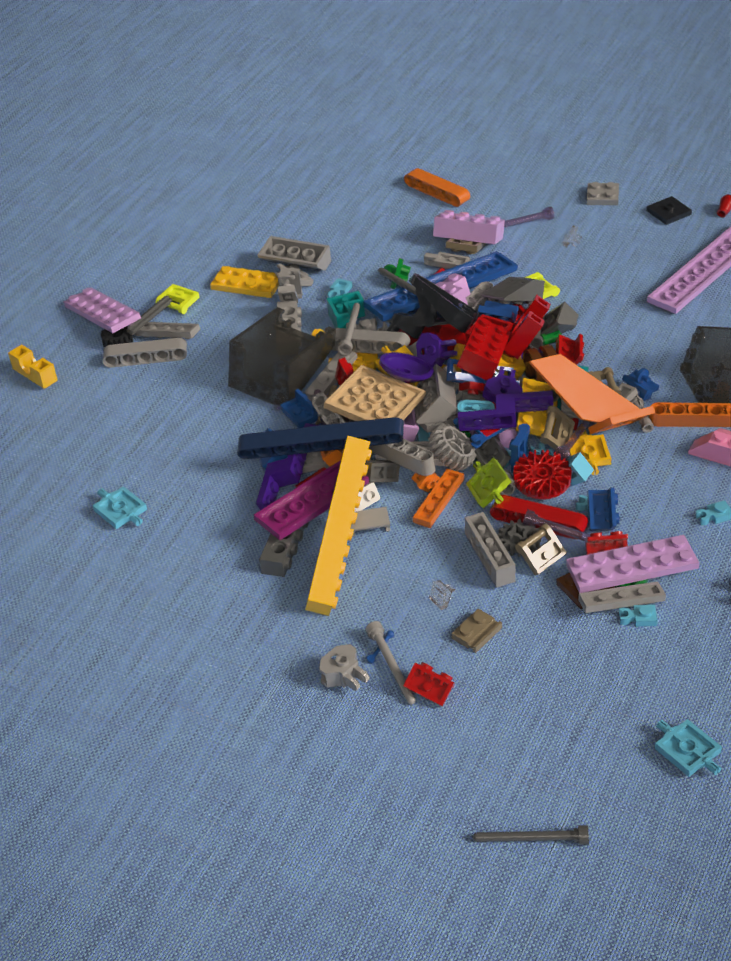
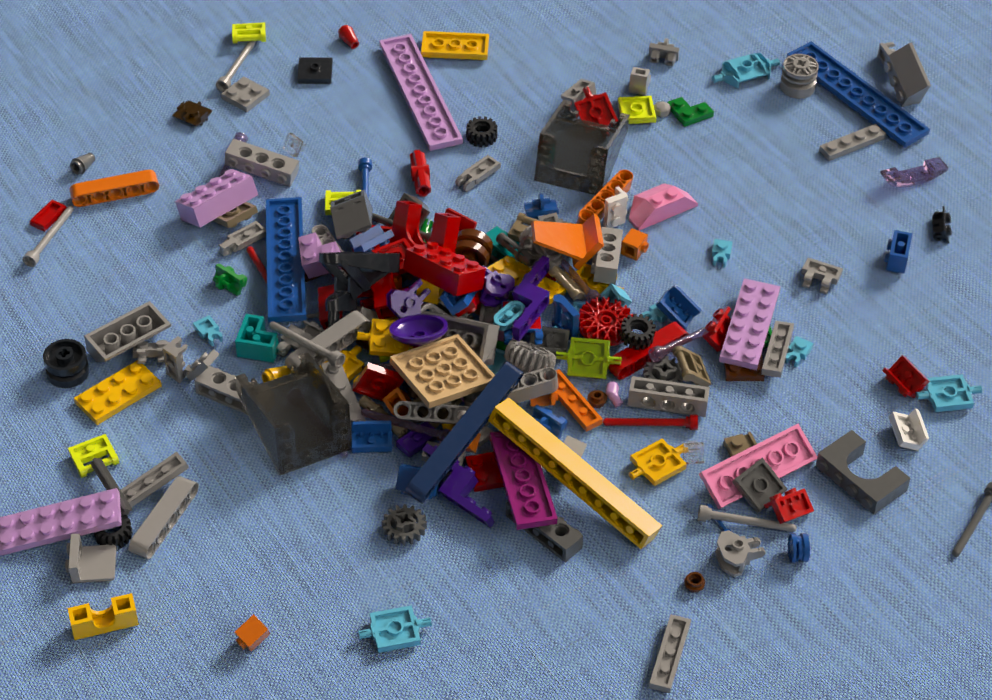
camera: 65 degrees left, 5 degrees up
(63, 437) = (251, 633): none -> orange brick
(79, 338) = (90, 562): none -> light grey bracket
(201, 675) = (670, 653): none -> light grey plate
(224, 466) = (404, 524): none -> dark grey gear
(246, 245) = (66, 363): none -> black wheel
(293, 658) = (694, 577): none -> reddish brown plate
(337, 189) = (31, 258): none -> light grey piece
(382, 709) = (798, 547): none -> blue wheel
(384, 177) = (47, 215): none -> red tile
(397, 280) = (310, 274): dark grey piece -> none
(397, 493) = (549, 421): none -> blue hips
(411, 577) = (657, 462): none -> yellow plate
(437, 650) = (759, 484): none -> dark grey tile
(447, 164) = (82, 163): none -> dark grey cone
(455, 512) = (597, 398): none -> reddish brown plate
(460, 642) = (782, 452): none -> bright pink plate
(461, 525) = (612, 393): none -> lavender arm
(478, 579) = (689, 422): none -> red piece
(515, 695) = (871, 493): none -> dark grey arch
(530, 230) = (261, 162): none -> light grey brick
(540, 501) = (635, 339): none -> black tyre
(552, 181) = (192, 113): none -> dark brown piece
(588, 279) = (365, 167): none -> blue piece
(602, 178) = (225, 82): none -> light grey piece
(603, 732) = (909, 429): none -> white bracket
(612, 307) = (420, 173): none -> red piece
(622, 441) = (606, 260): none -> light grey brick
(648, 335) = (477, 172): none -> light grey hinge
(661, 454) = (634, 244): none -> orange brick
(668, 162) = (248, 32): none -> neon yellow plate
(672, 703) = (906, 377): none -> red bracket
(684, 421) = (615, 209): none -> white bracket
(699, 315) = (481, 138): none -> black tyre

